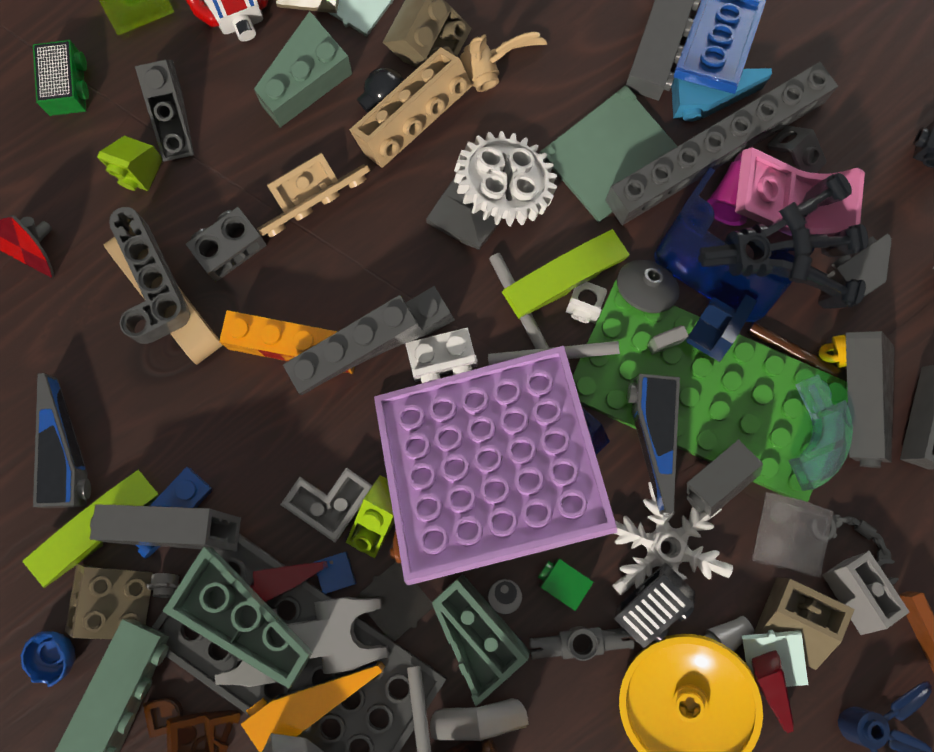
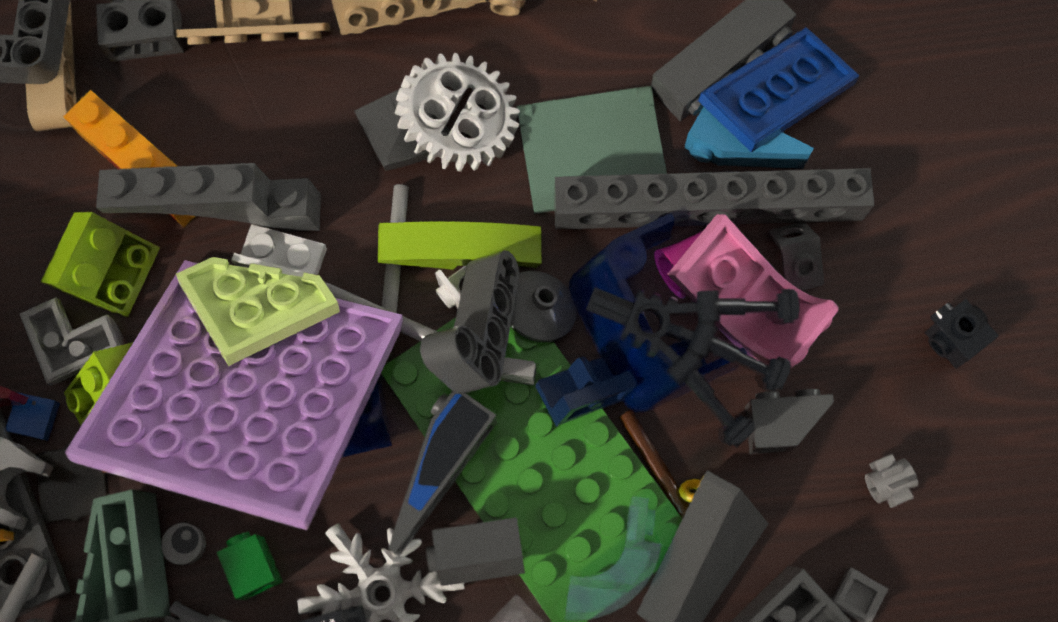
camera: 35 degrees right, 5 degrees down
(313, 434) = (100, 263): none -> lime slope
(456, 398) = (254, 304): none -> yellowish green plate
(640, 341) = (475, 348): none -> dark grey beam

